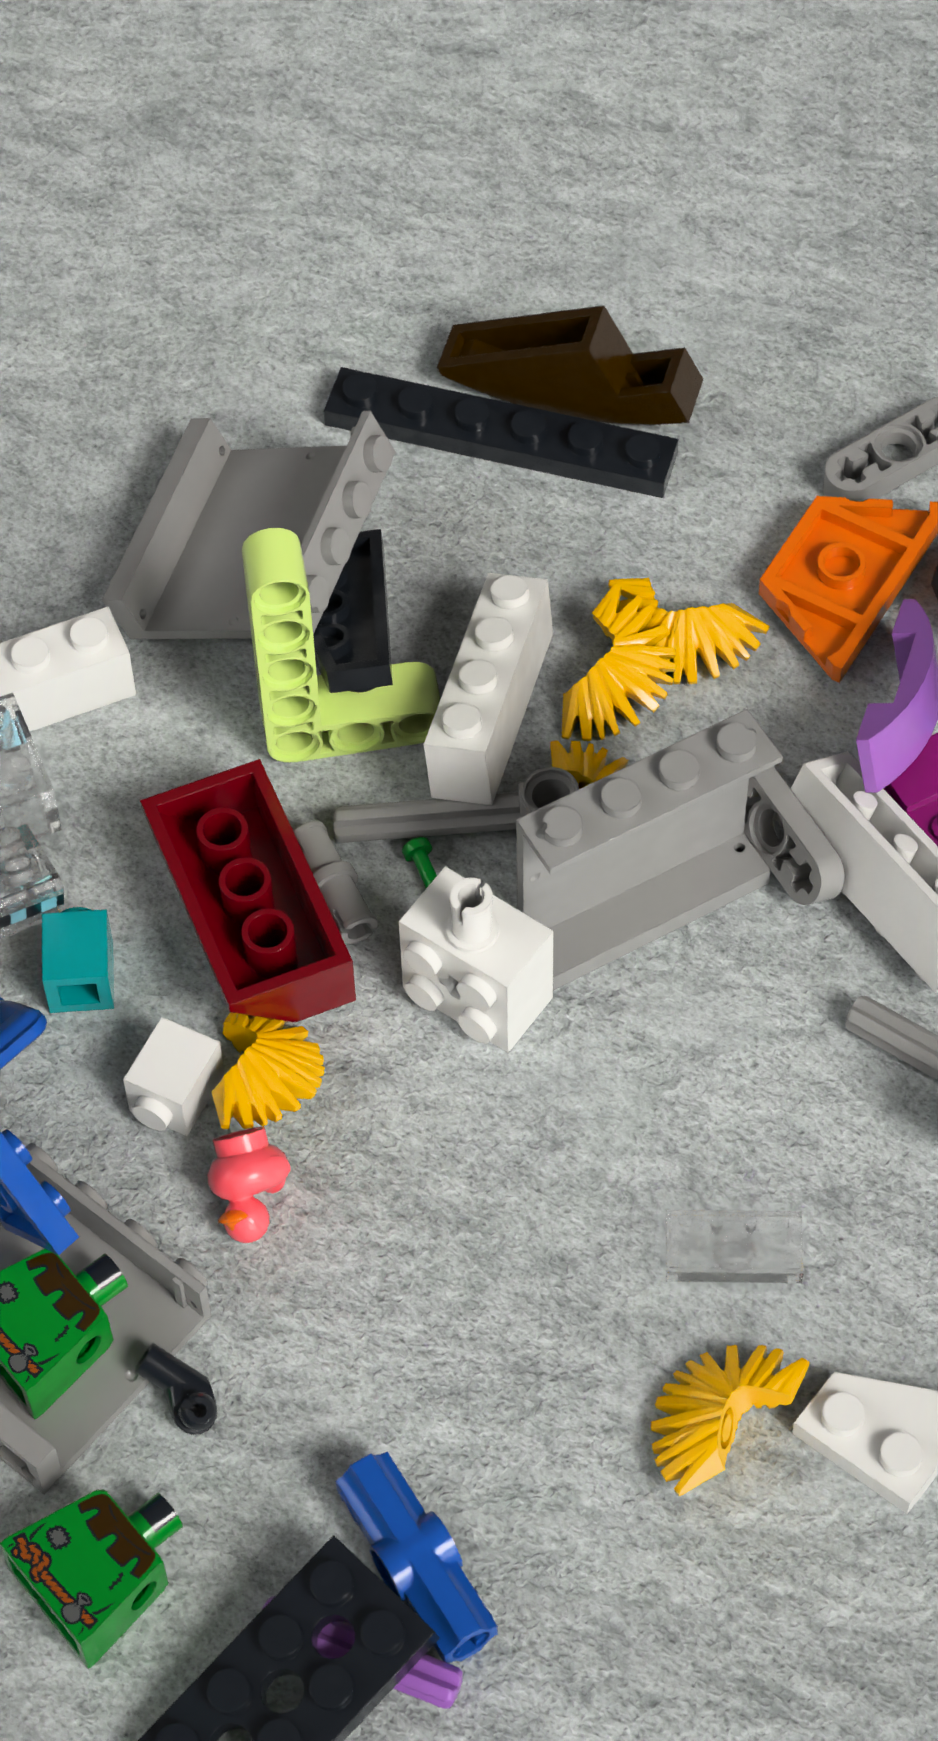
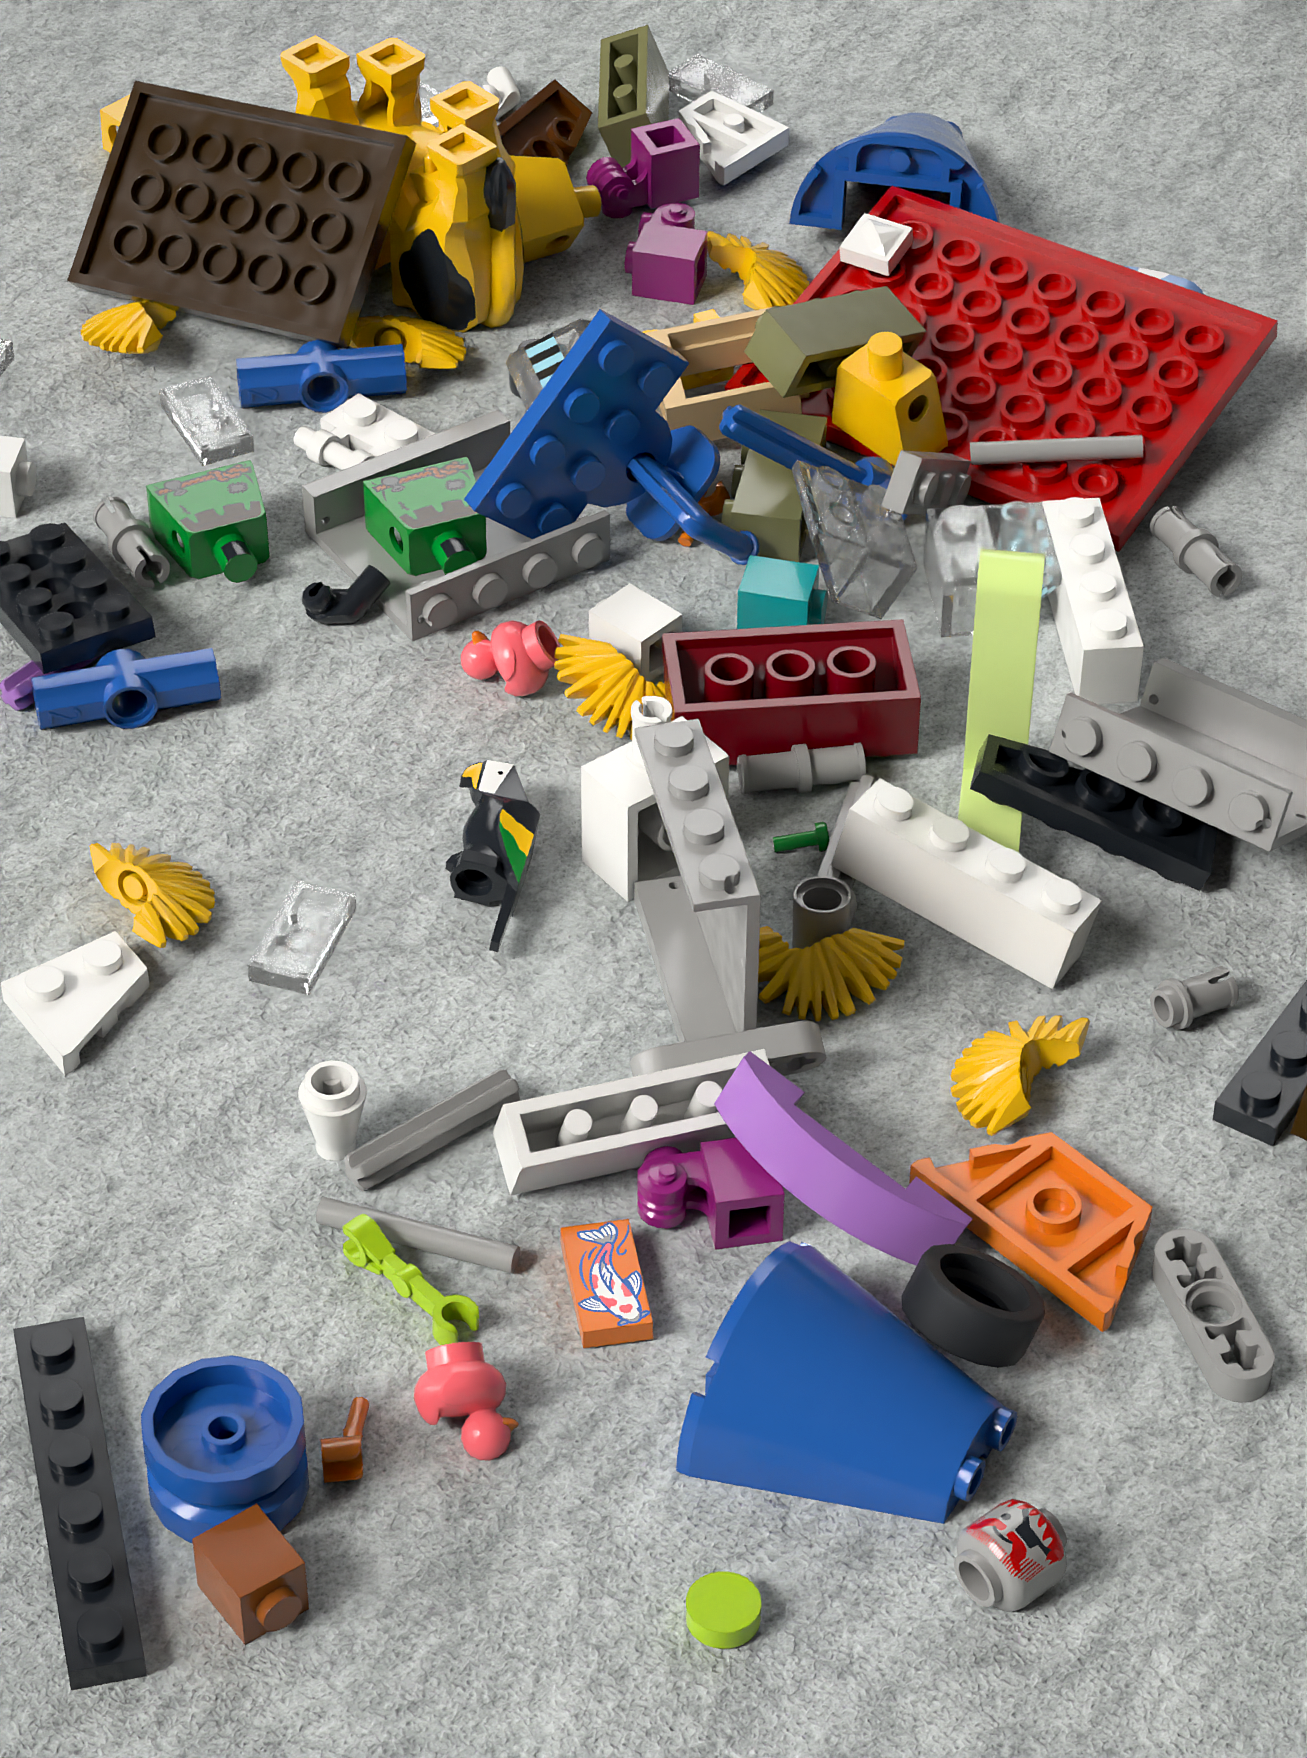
camera: 105 degrees right, 15 degrees down
(144, 1658) = (131, 542): none -> light grey pin
(547, 1100) = (495, 841): none -> black animal
(548, 527) = (1179, 1002): none -> light grey pin
(623, 673) = (963, 1008): yellow hair -> none

